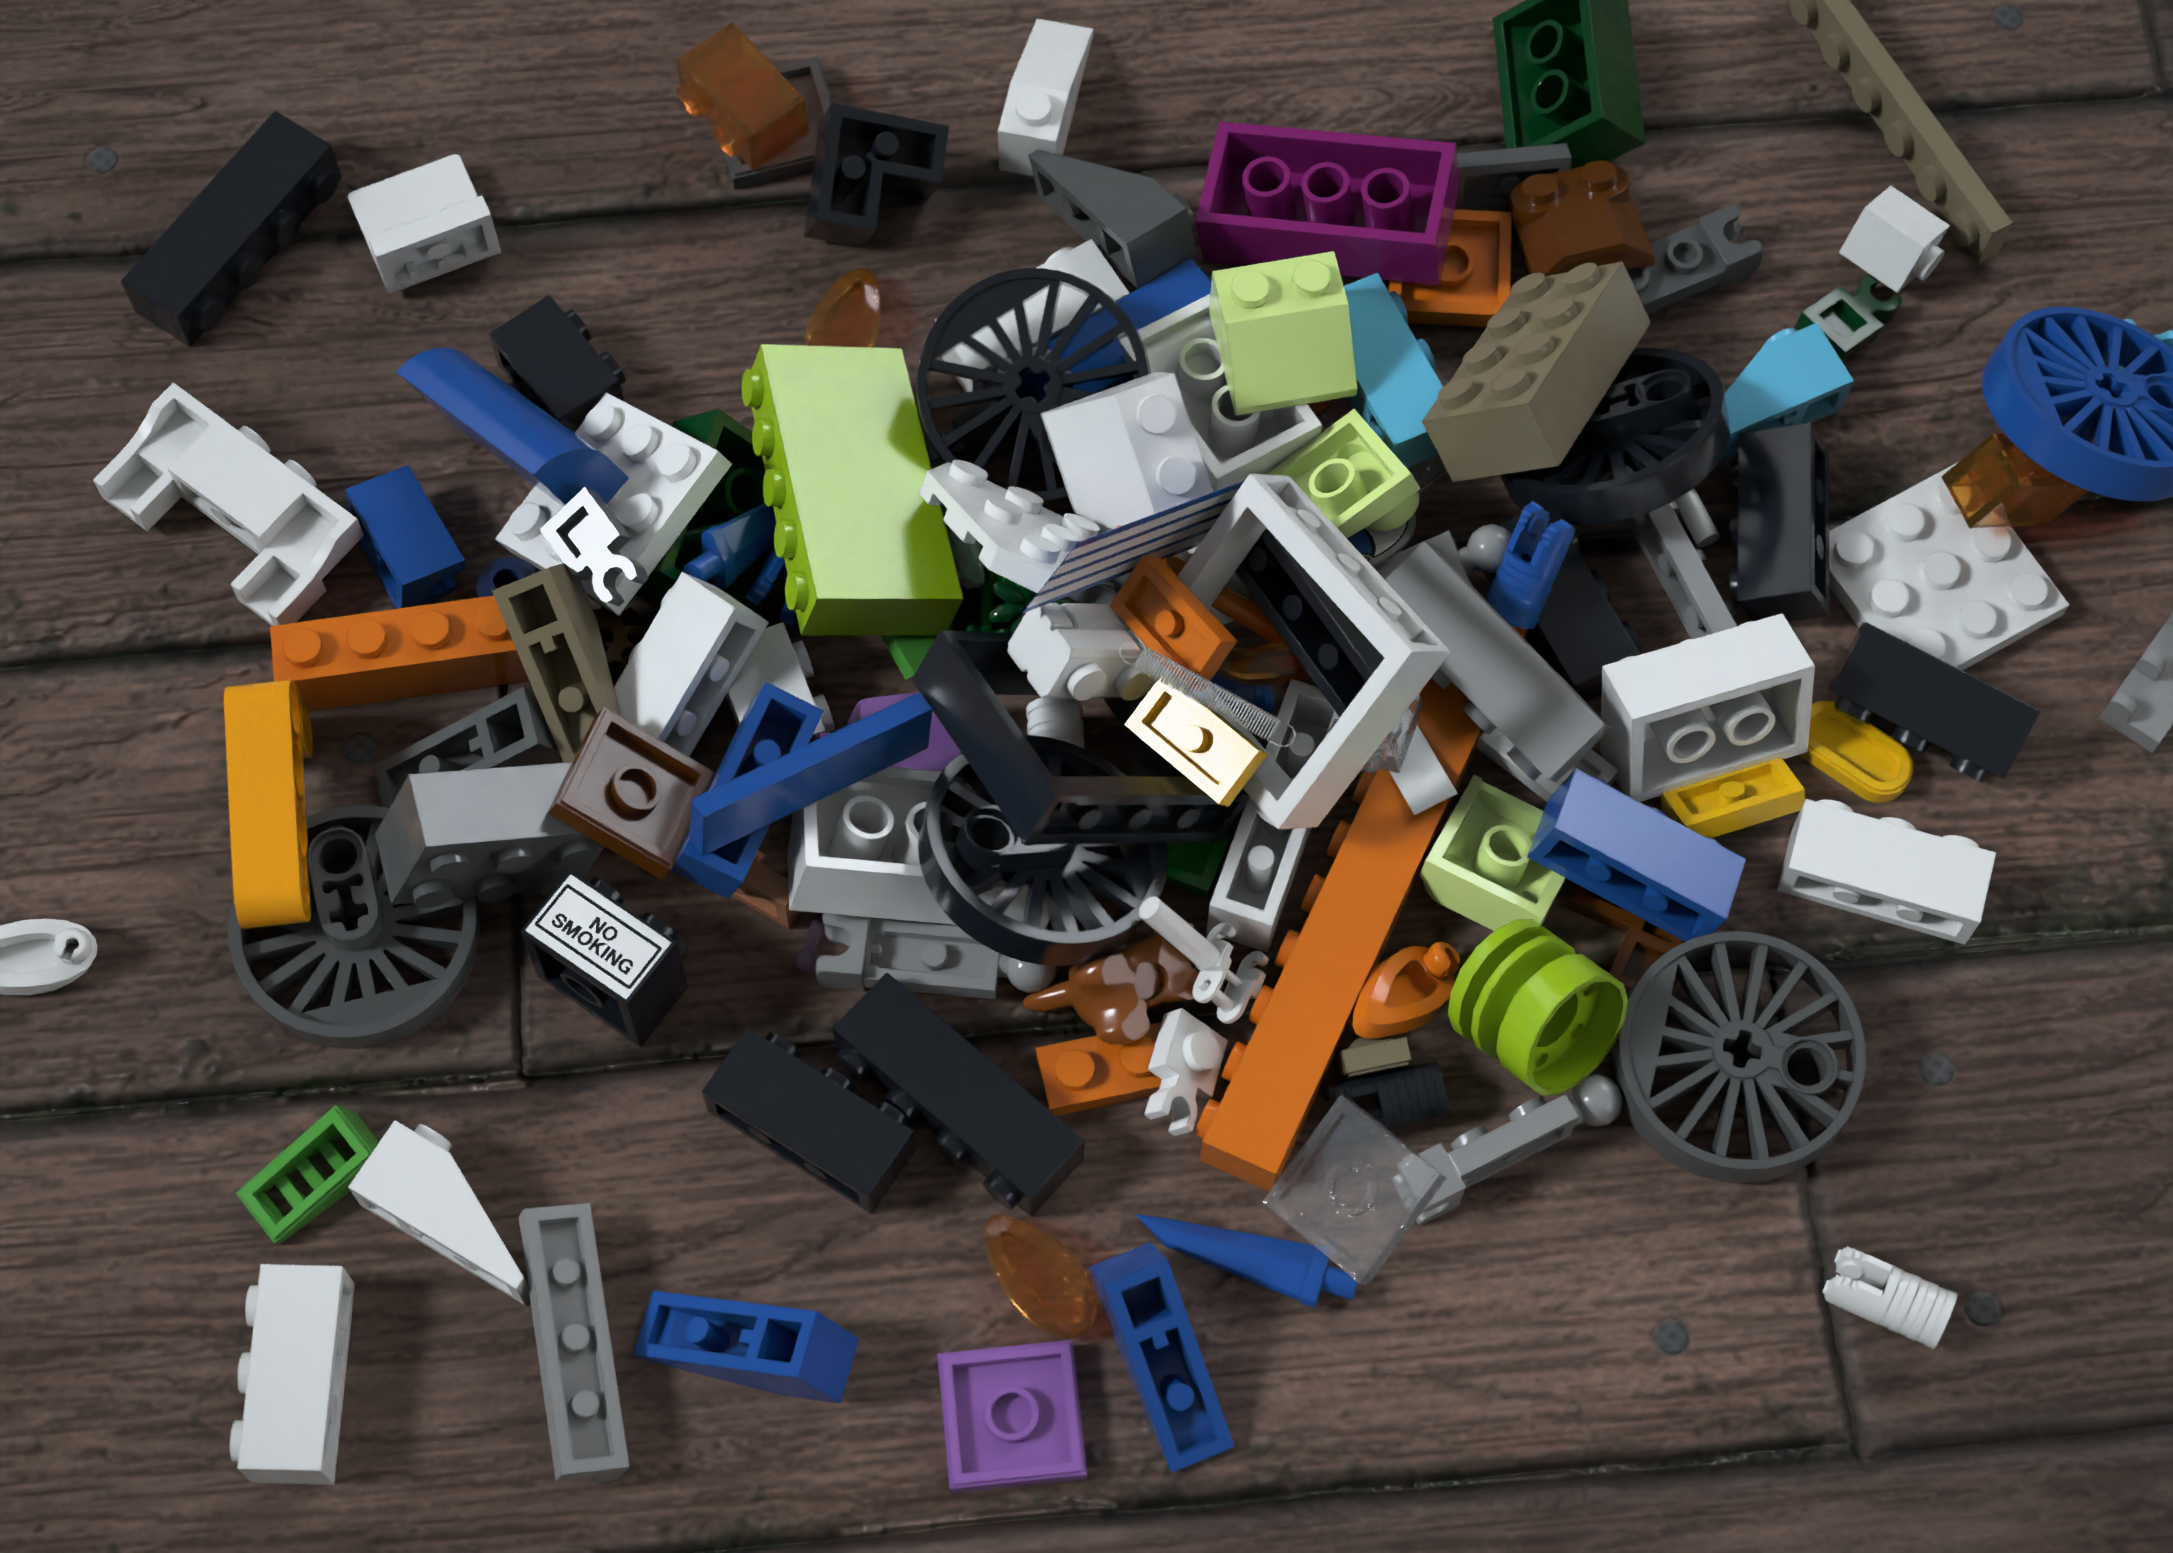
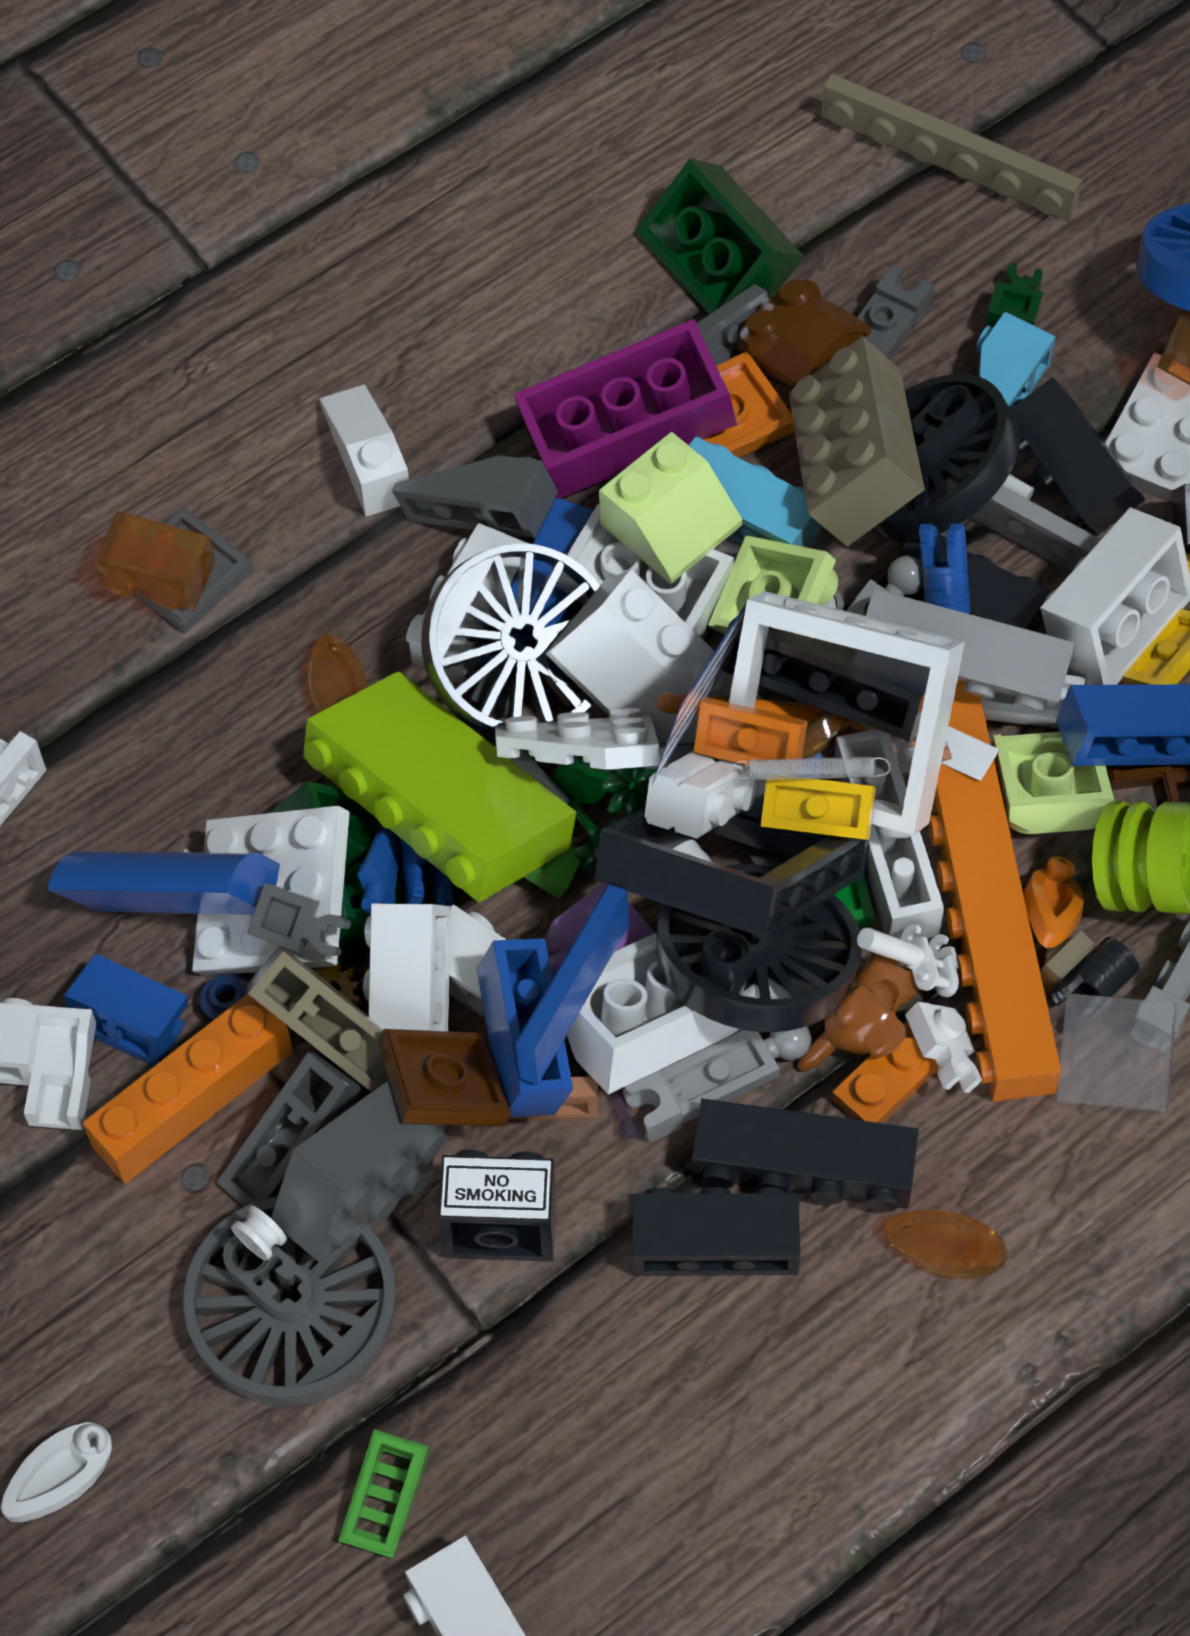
camera: 30 degrees left, 5 degrees down
(265, 750) = (174, 1245): light orange beam -> none
(351, 839) = (259, 1233): none -> white bush
(423, 1193) = (492, 1454): white slope -> none
(554, 363) = (148, 819): black brick -> none
(573, 1343) = (664, 1486): light grey hinge -> none
(749, 1344) = (783, 1412): blue slope -> none
(860, 158) = (275, 562): black brick -> none
(1011, 1416) = (994, 1349): medium lavender tile -> none
(1162, 1355) = (1065, 1239): blue slope -> none
(1274, 1263) = (1094, 1137): blue bar -> none
(1895, 240) = (1013, 232): white brick -> none

